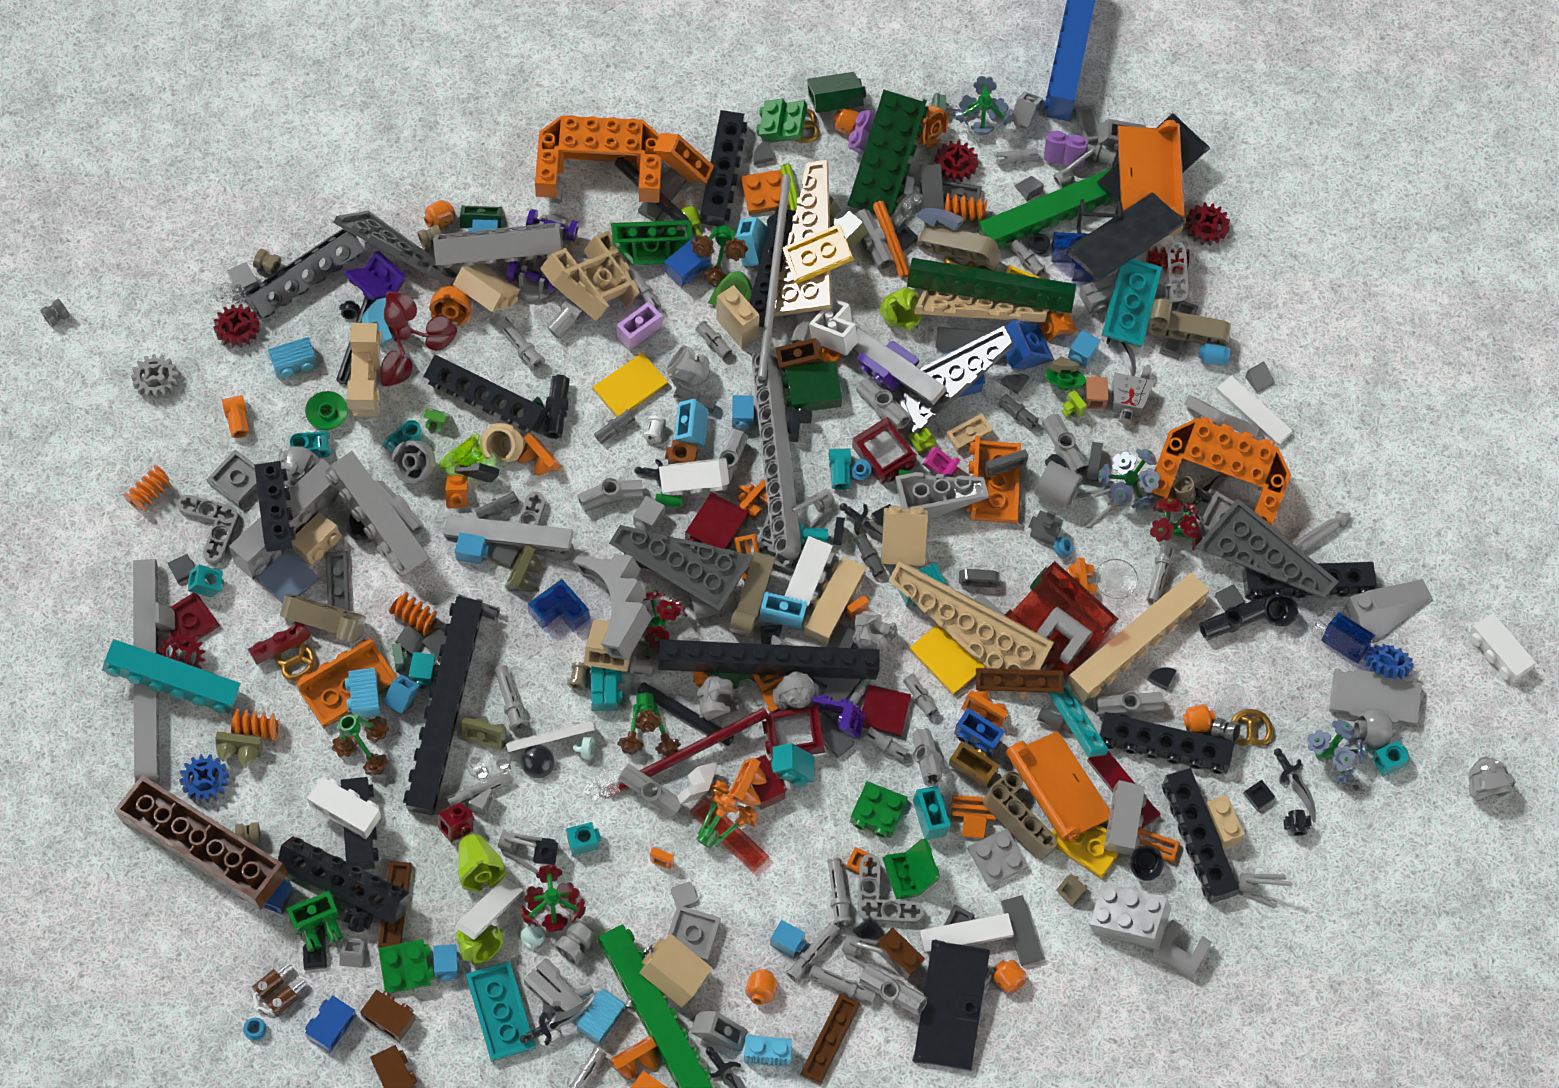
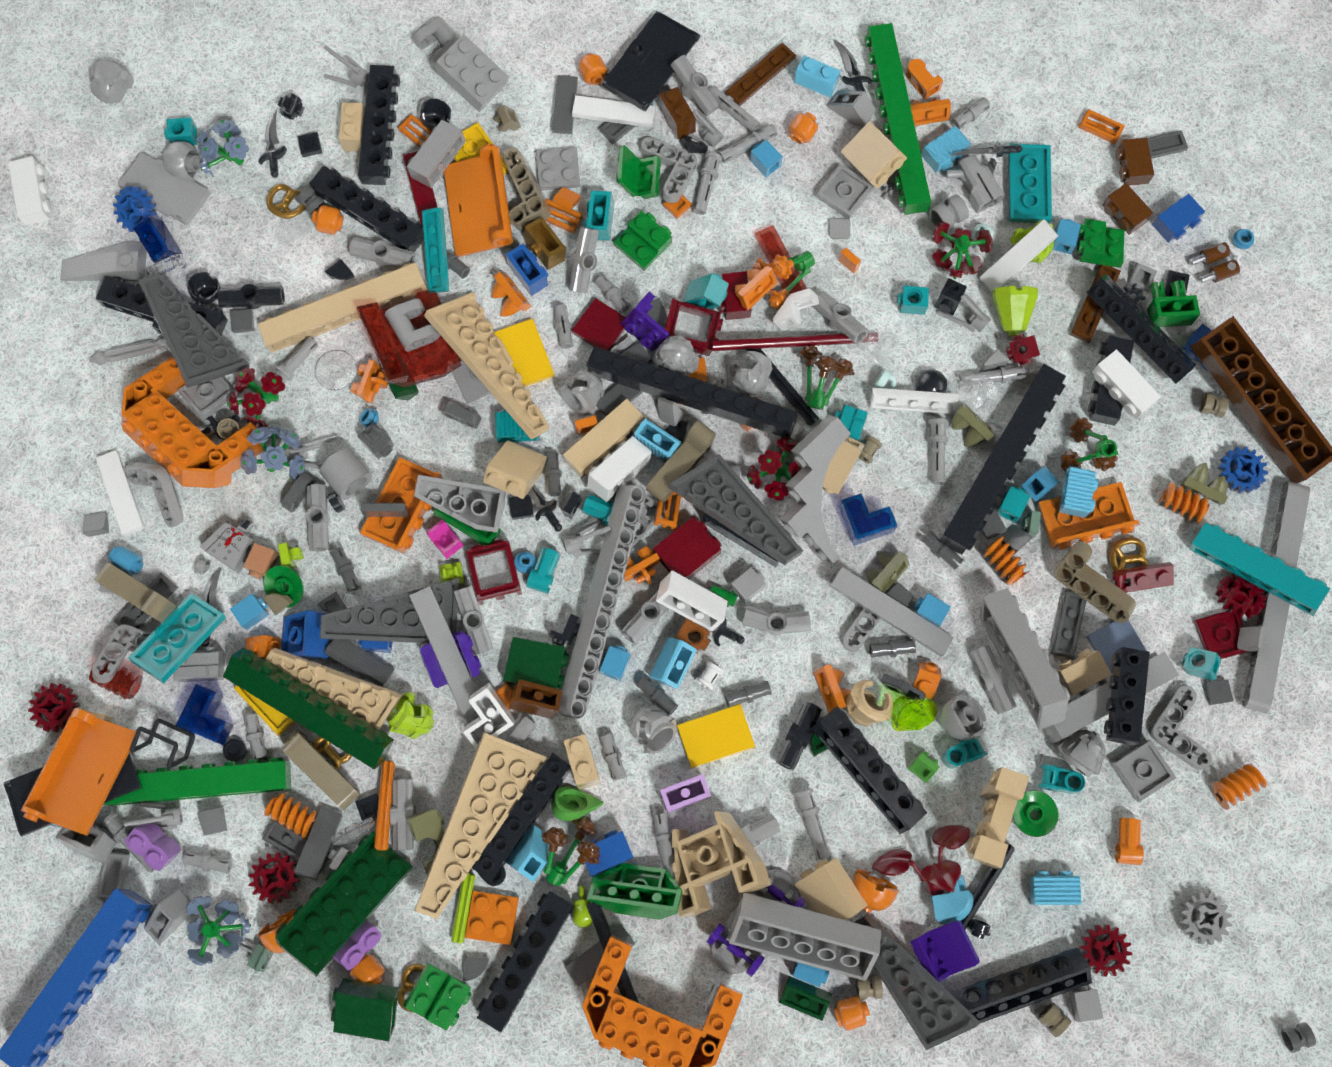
camera: 155 degrees left, 10 degrees up
(229, 290) = (1106, 990): clear beam -> none
(683, 158) = (569, 970): orange brick -> none
(774, 277) = (525, 794): light grey piece -> none
(818, 254) = (472, 796): tile -> none
(934, 216) = (326, 810): sand blue slope -> none
(965, 433) = (403, 564): tan plate -> none
(1020, 680) = (469, 302): reddish brown tile -> none
(1125, 237) = (147, 701): black door -> none

